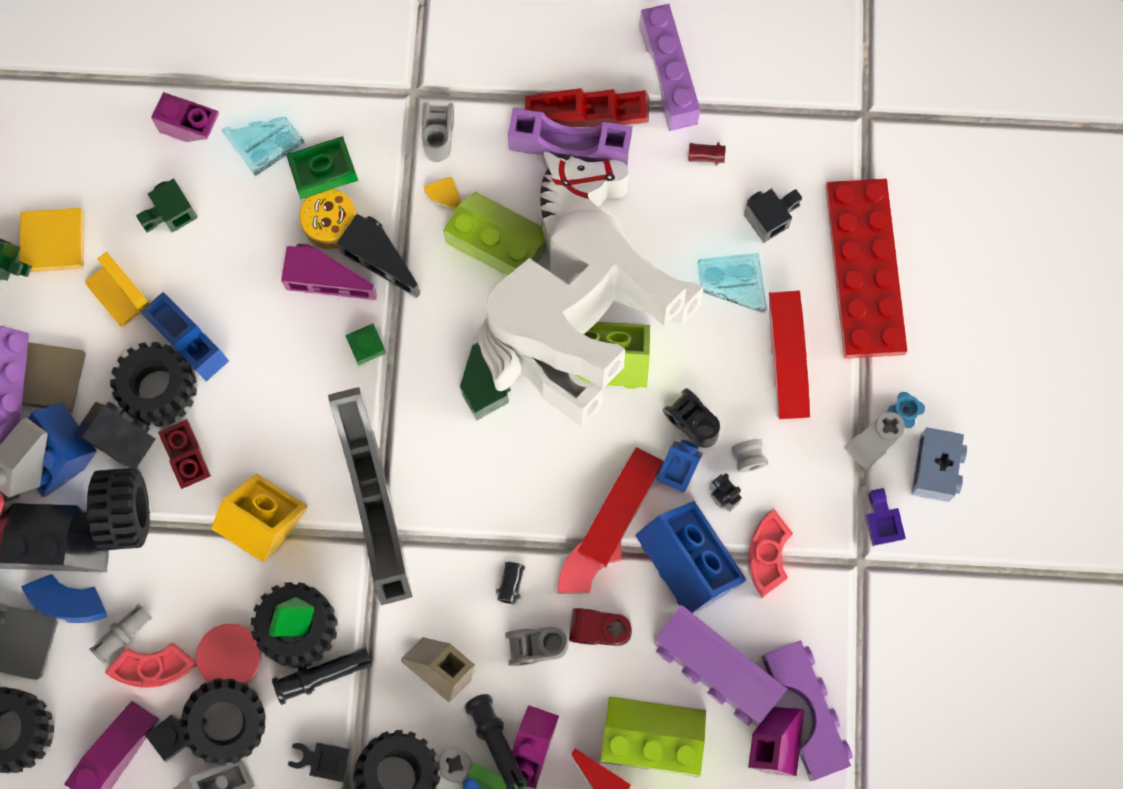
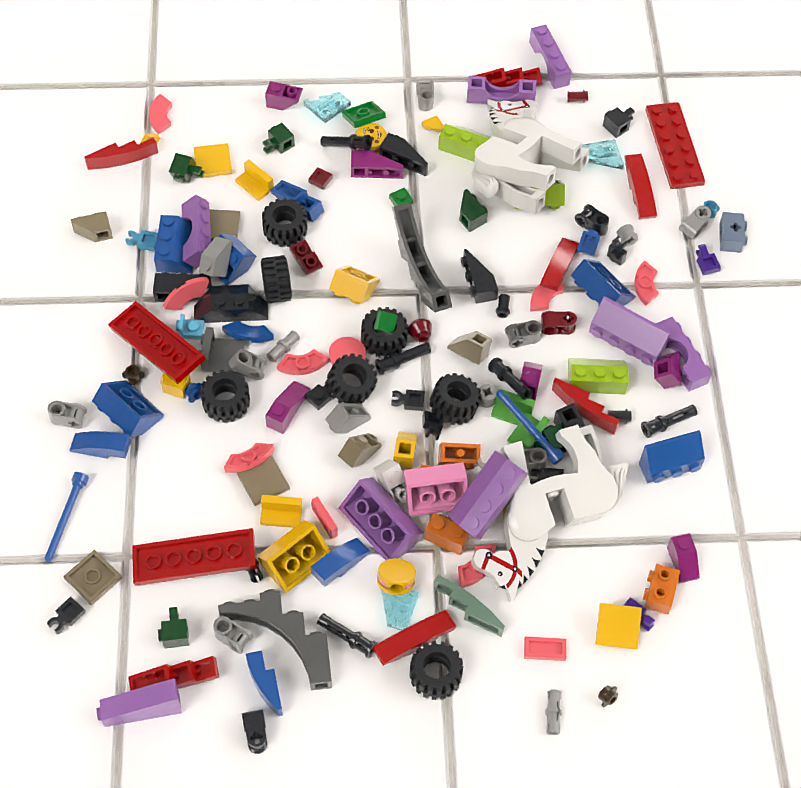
camera: 10 degrees left, 15 degrees down
(61, 670) = (250, 364): none -> light grey piece
(115, 435) = (266, 243): black brick -> none
(230, 293) = (320, 178): none -> dark red plate
(255, 218) = (353, 141): none -> black pin
(358, 624) = (420, 329): none -> dark red cone
(479, 532) = (481, 280): none -> black slope

